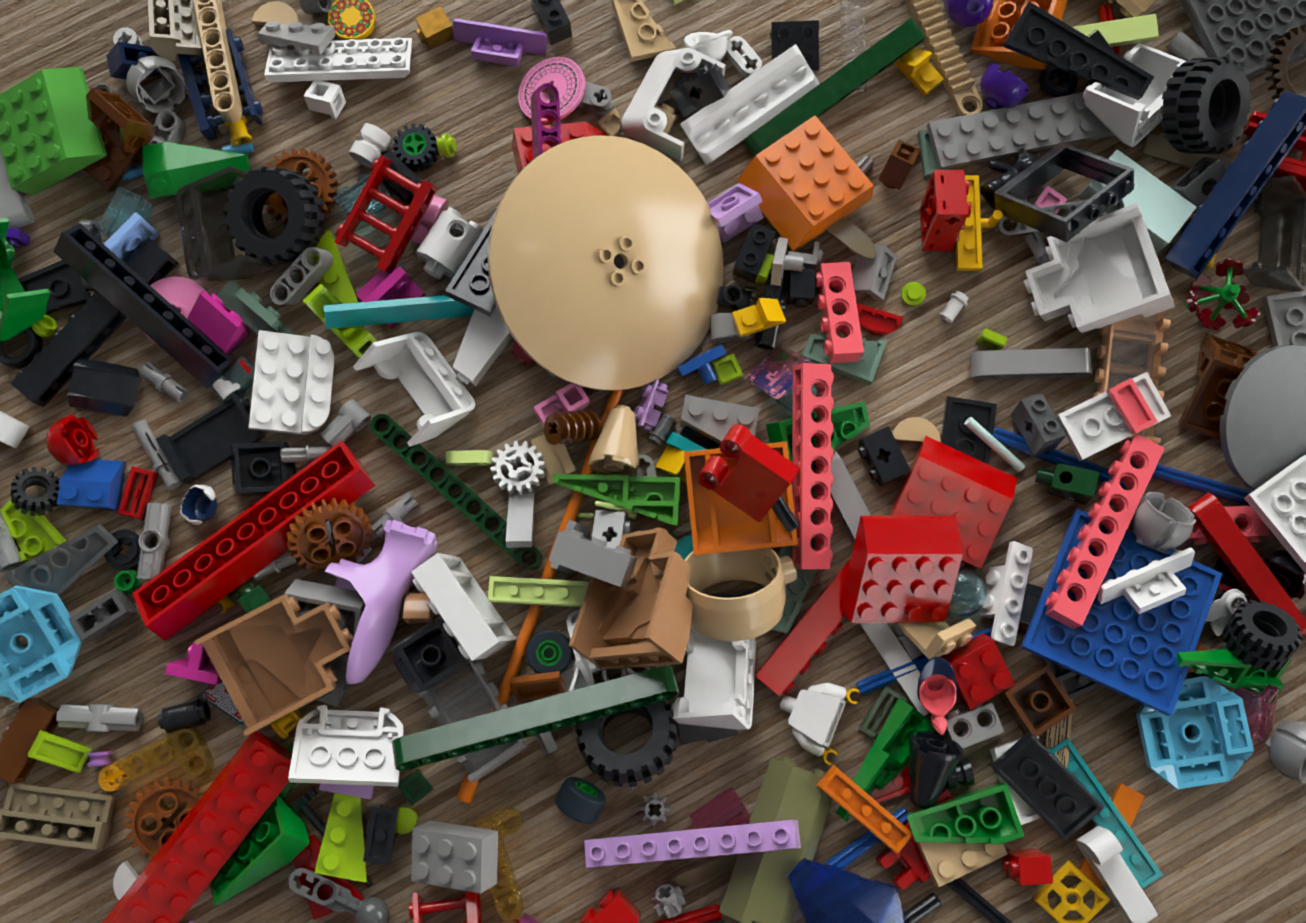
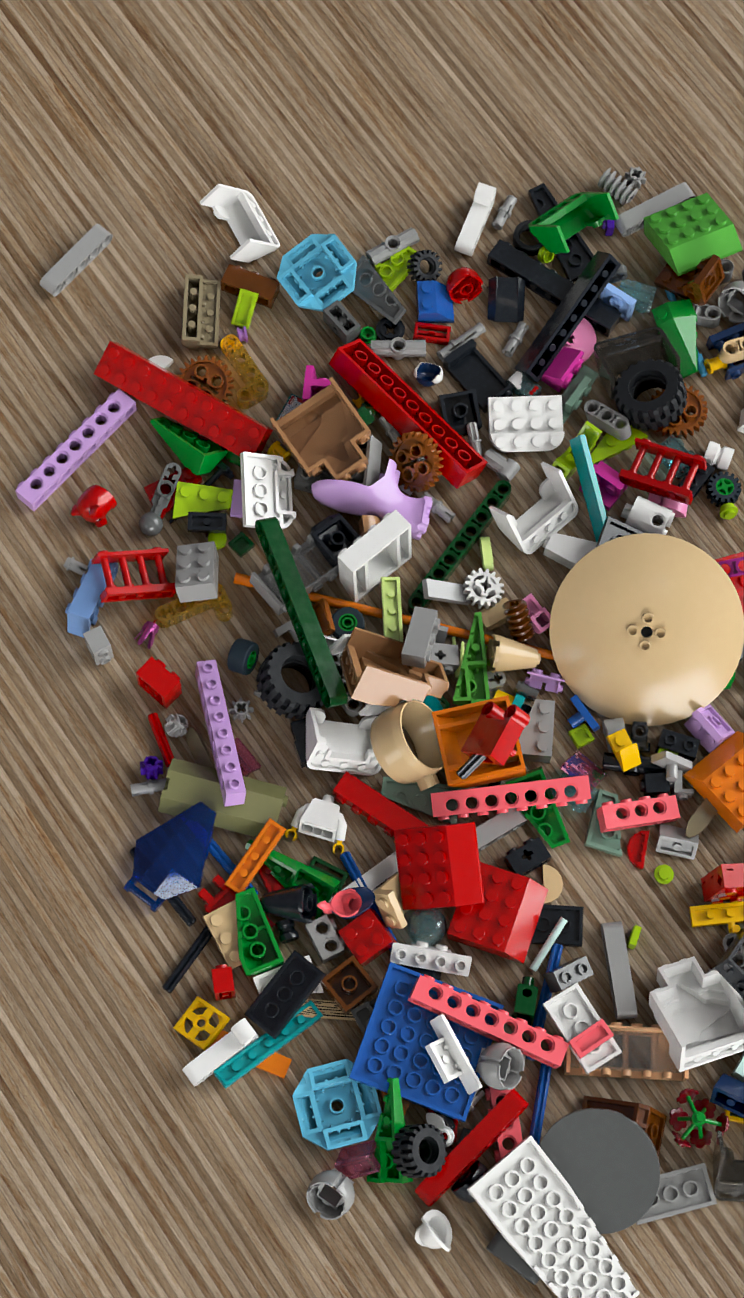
camera: 80 degrees right, 10 degrees down
(99, 717) = (270, 331): light grey piece -> none
(184, 716) = (277, 385): black head -> none
(954, 306) = (657, 906): white pin -> none

